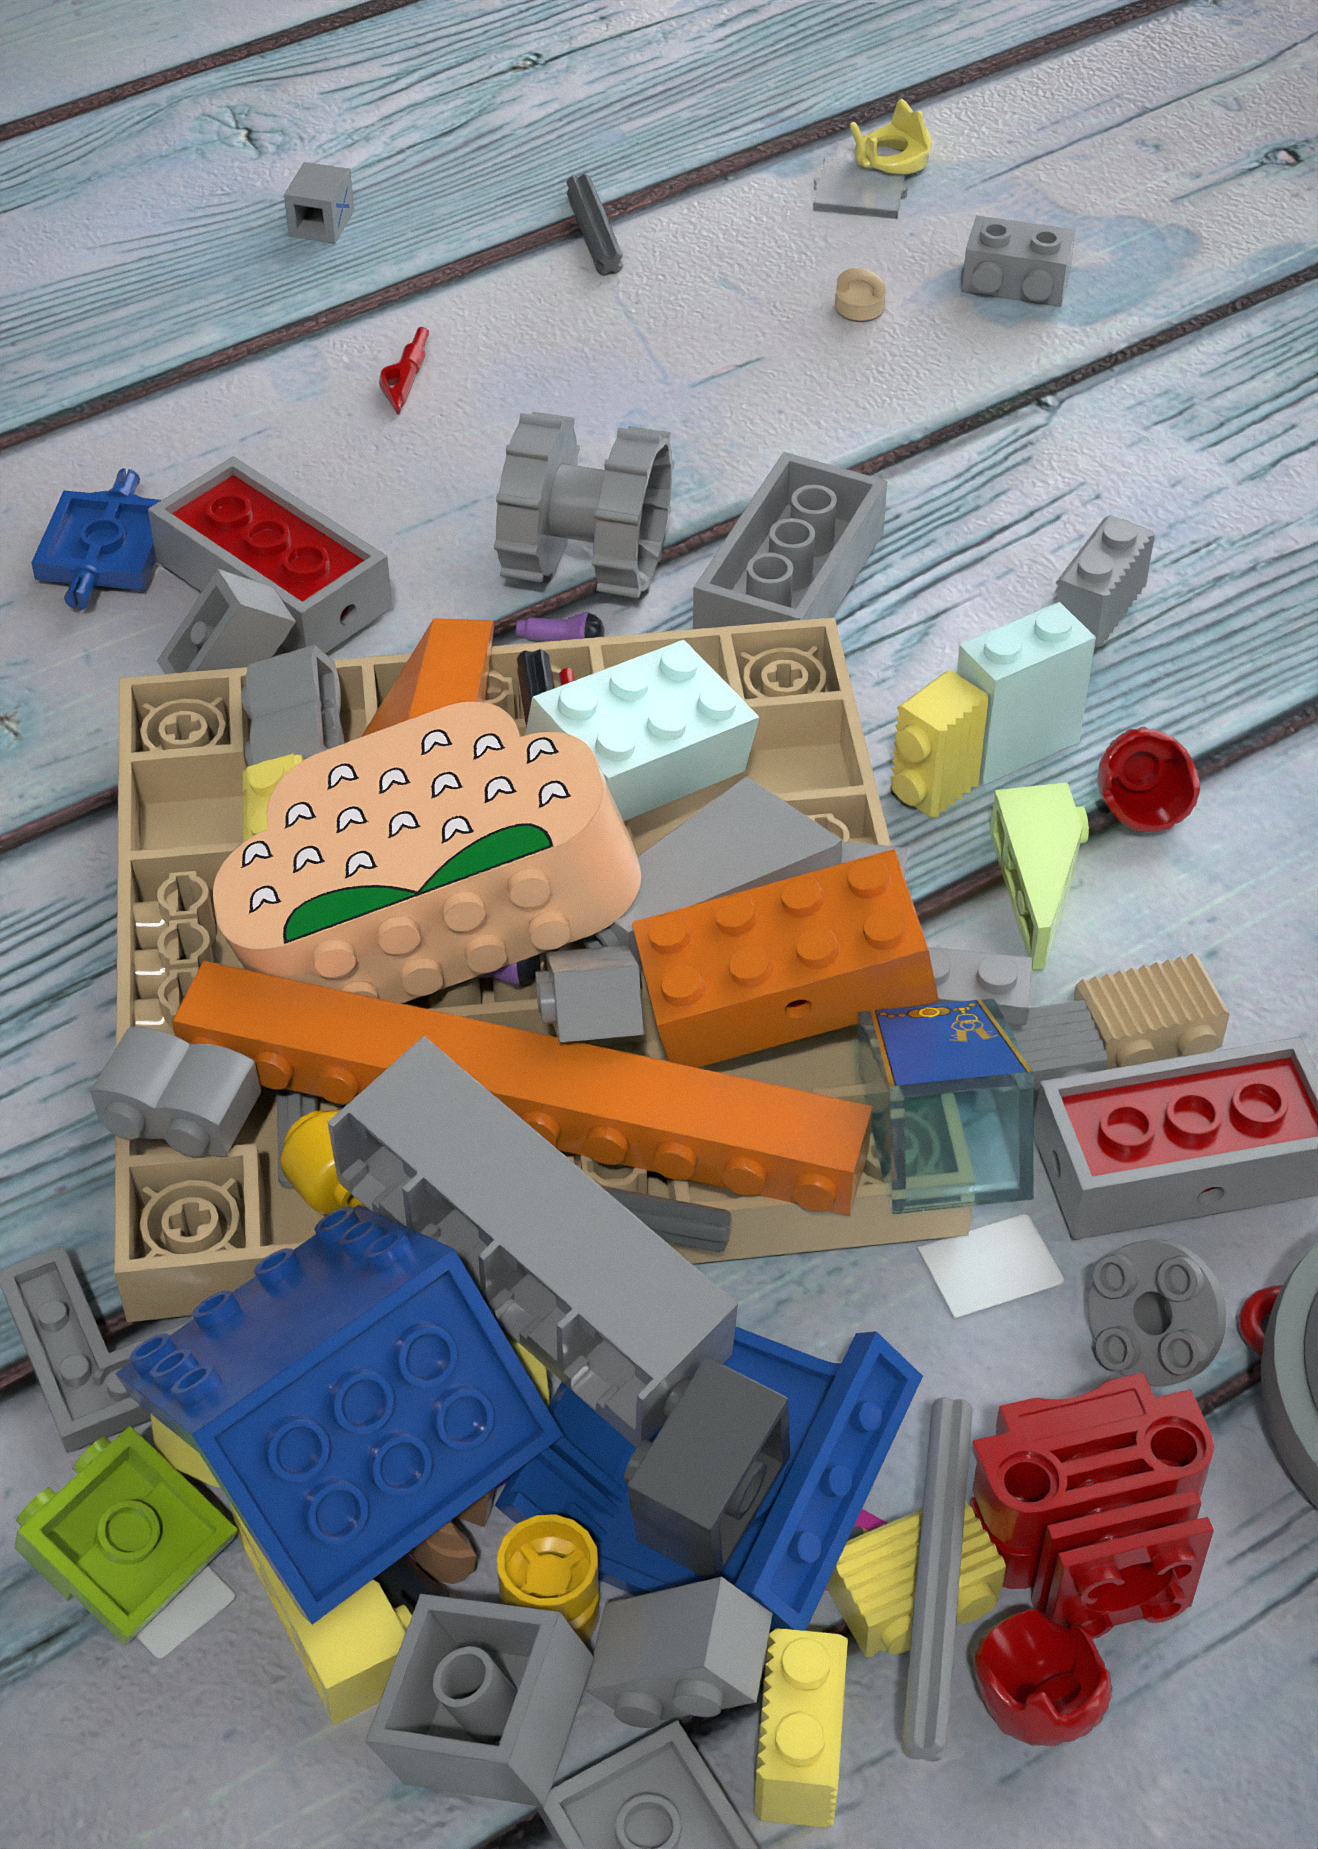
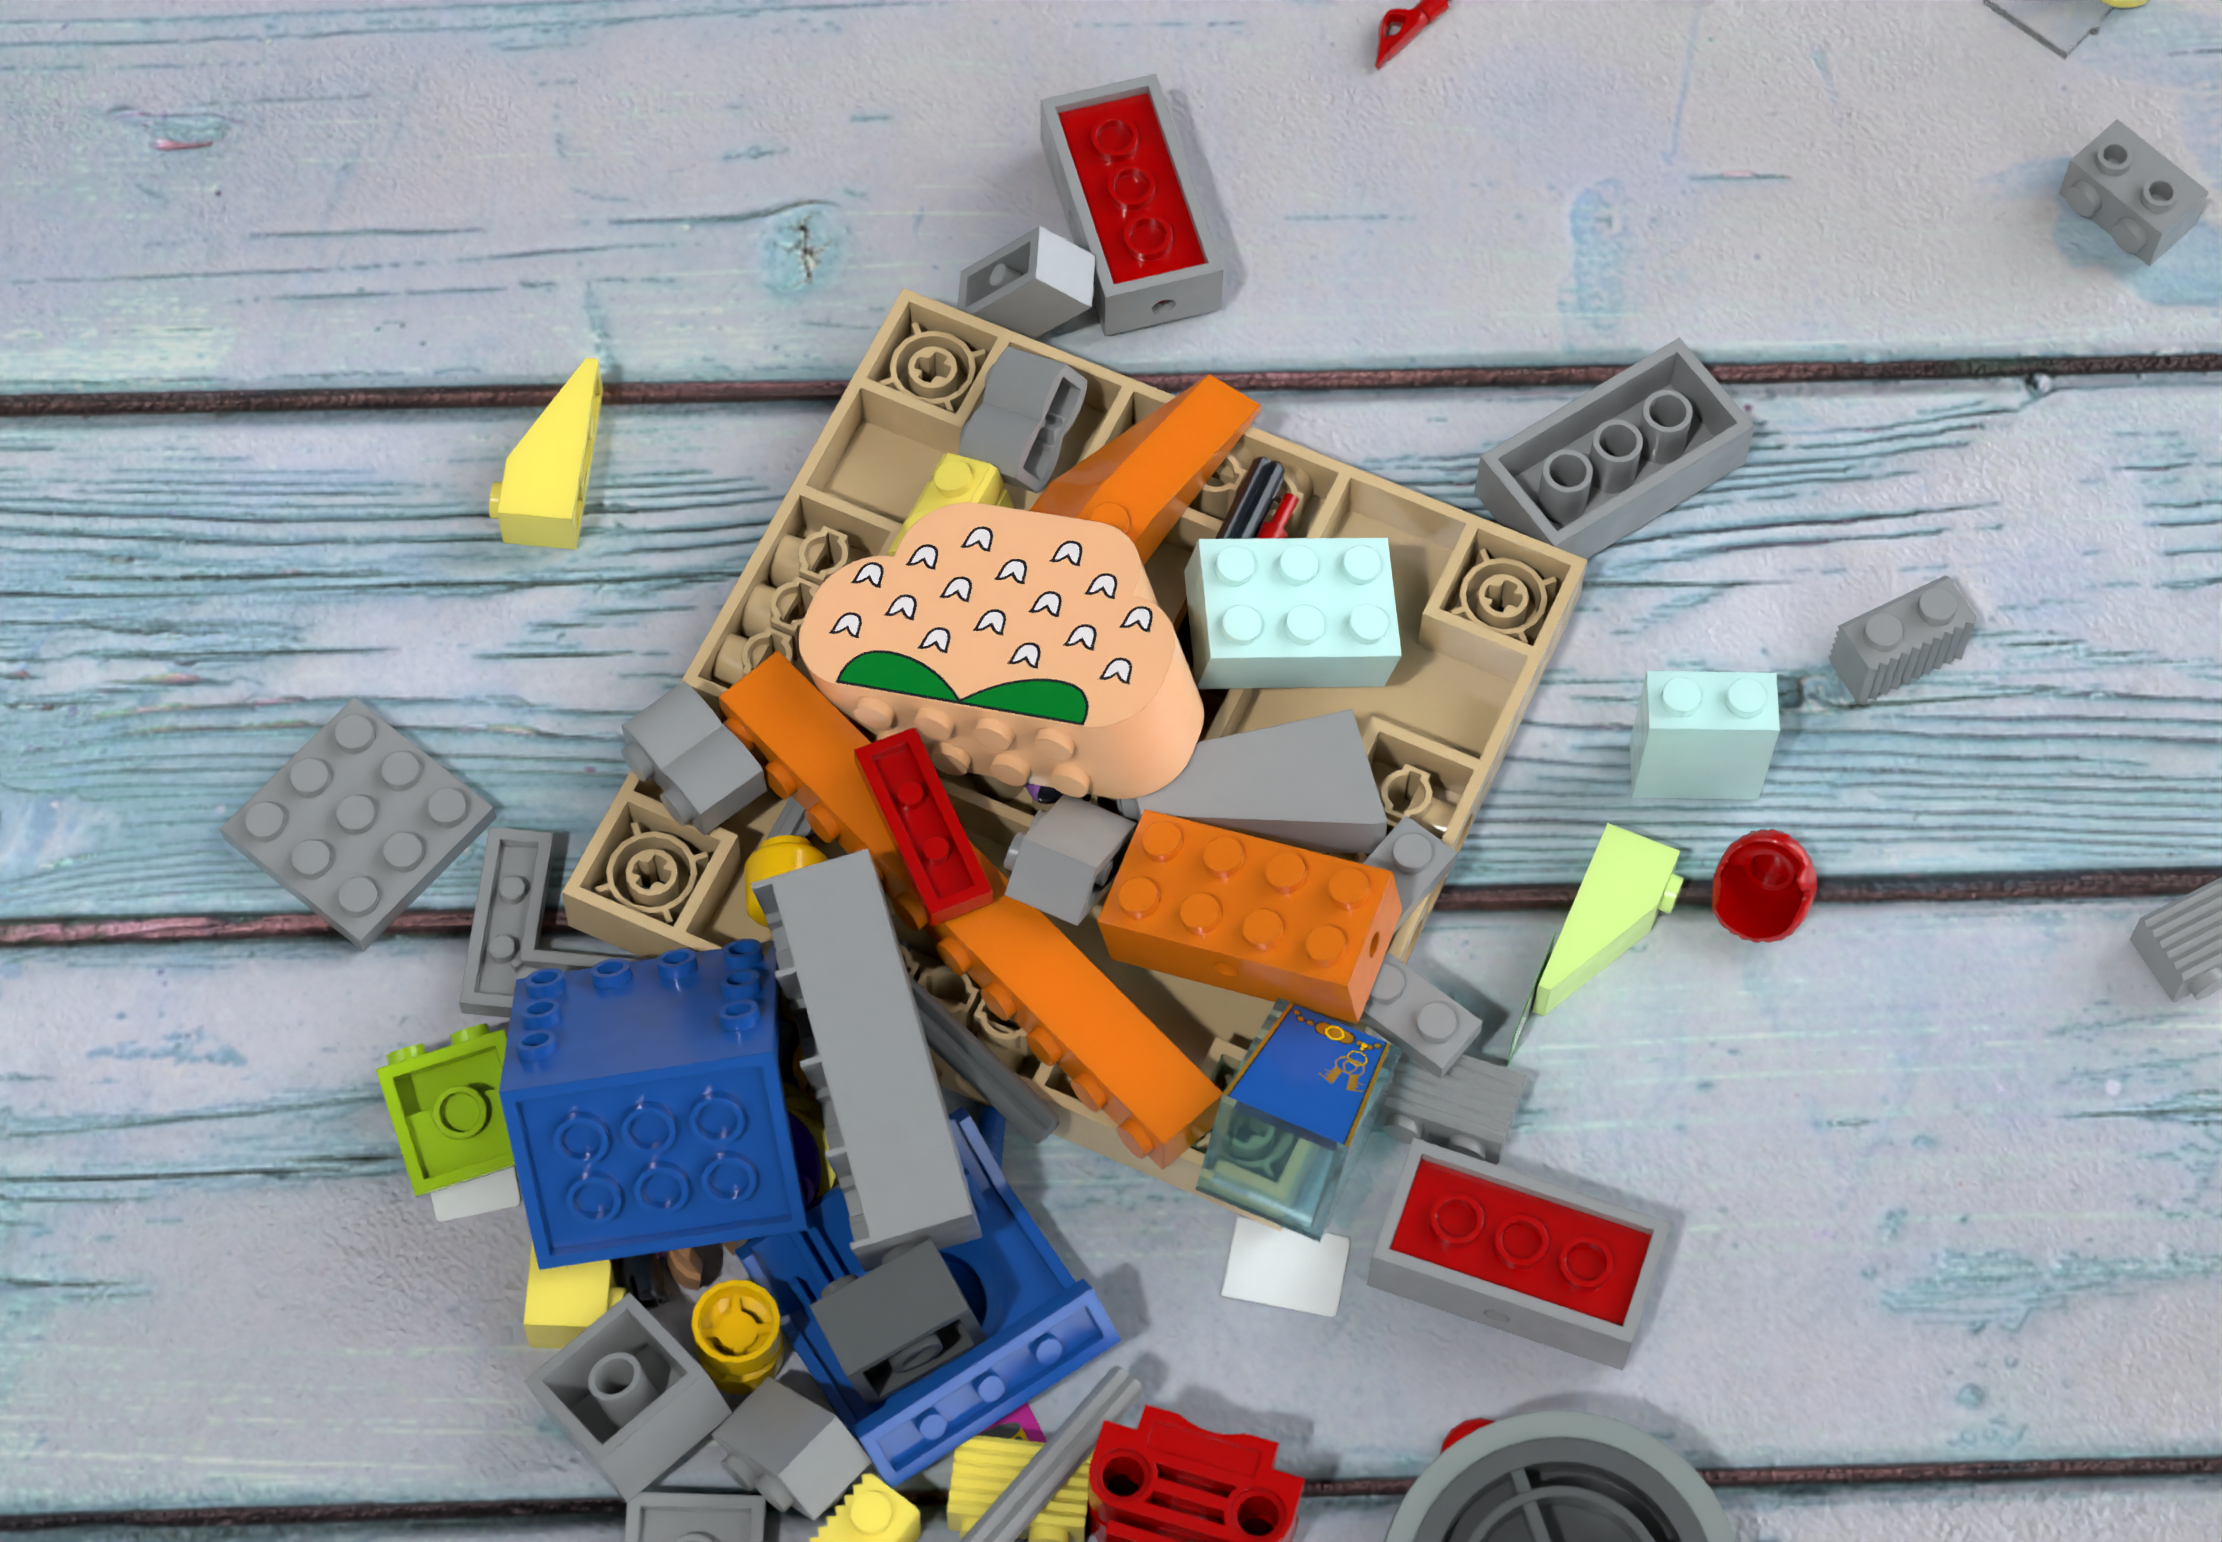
camera: 30 degrees right, 15 degrees up
(98, 541) = (995, 91): blue plate -> none
(473, 1033) = (923, 826): none -> red plate
(546, 629) = (1374, 430): medium lavender piece -> none
(554, 500) = (1419, 280): light grey piece -> none
(860, 294) = (1938, 152): tan tile -> none
(939, 743) = (1592, 746): light yellow brick -> none
(1033, 947) = (1530, 1001): none -> sticker
(1155, 1012) = (1584, 1121): tan brick -> none
(1156, 1312) = (1368, 1392): light grey plate -> none

